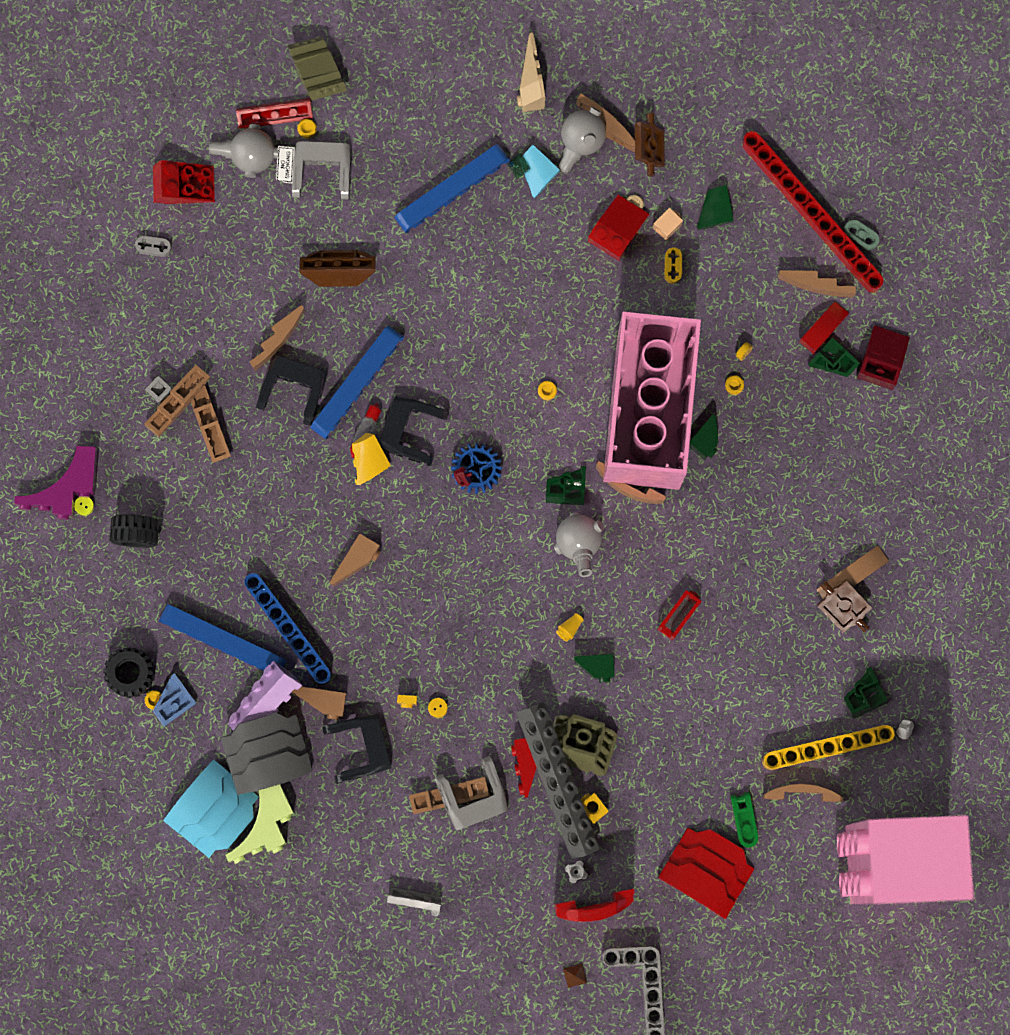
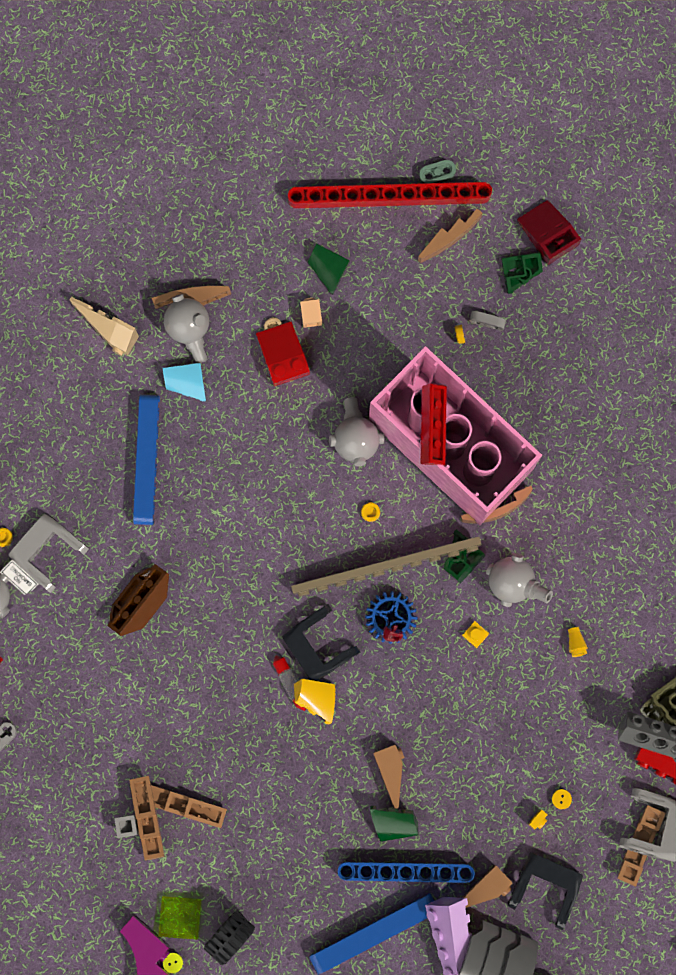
camera: 50 degrees left, 0 degrees up
(122, 485) = (180, 917): none -> clear neon green plate
(282, 332) = (156, 687): medium nougat slope -> none
(294, 372) = (201, 700): black connector -> none
(318, 591) = (394, 823): none -> dark green slope
(356, 381) = (245, 659): blue beam -> none
(514, 544) = (475, 634): none -> yellow plate
(518, 166) = (170, 393): clear green slope -> none
(518, 437) = (394, 564): none -> dark tan plate
(596, 332) = (355, 437): none -> light grey piece
(597, 666) = (625, 645): dark green slope -> none
(643, 372) = (433, 424): none -> red slope
(650, 144) = (236, 277): reddish brown plate -> none
(668, 265) = (344, 338): yellow beam -> none
(679, 614) = (633, 548): window -> none
(706, 439) = (509, 414): dark green slope -> none
(734, 385) = (480, 362): yellow tile -> none
(772, 364) = (487, 320): none -> light grey beam
(823, 327) = (489, 258): red slope -> none

